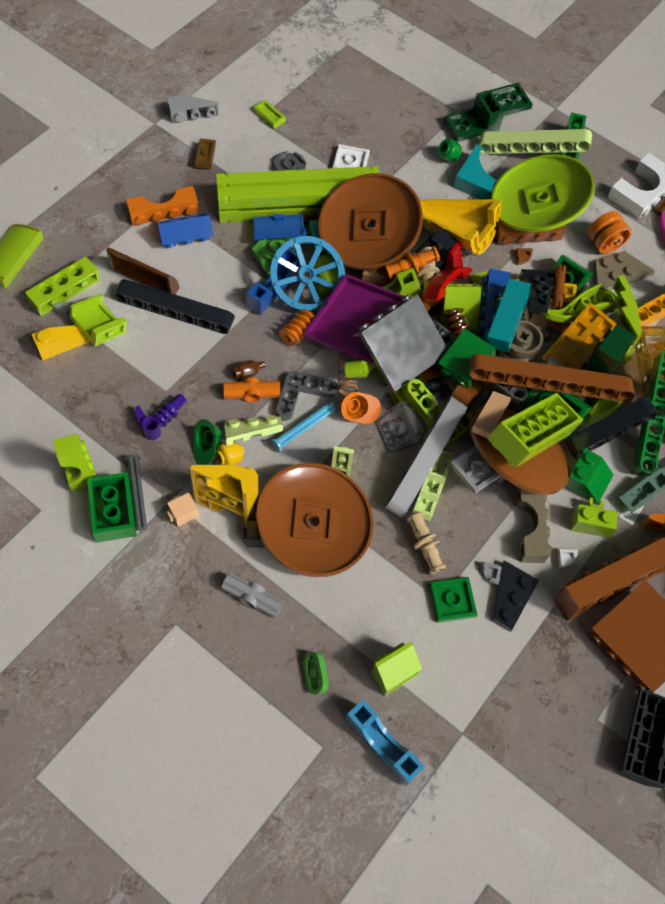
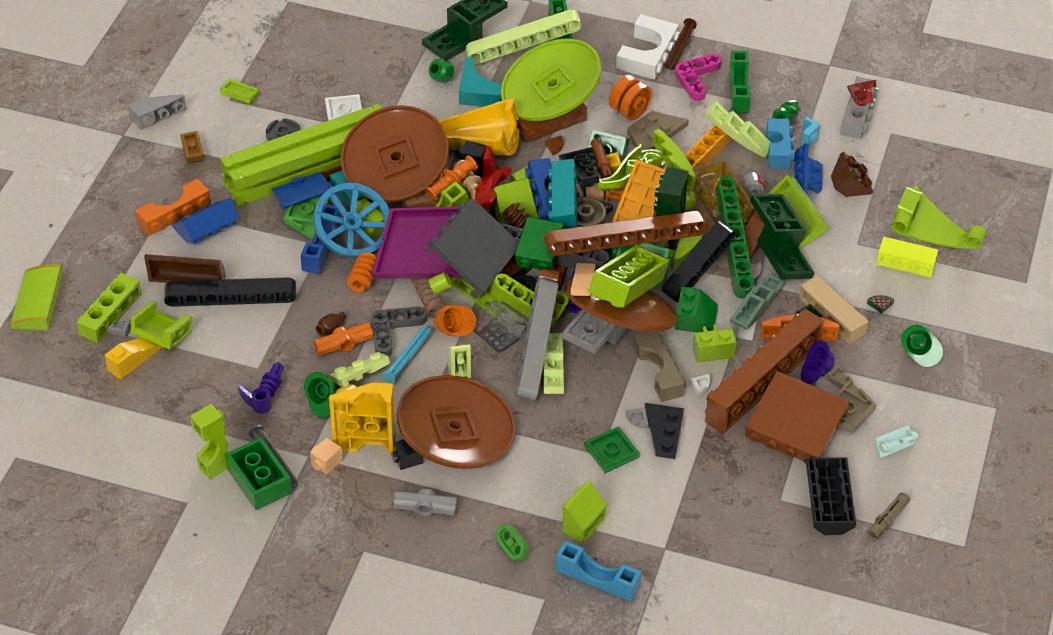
camera: 15 degrees left, 15 degrees down
(426, 543) = (567, 411): tan piece -> none

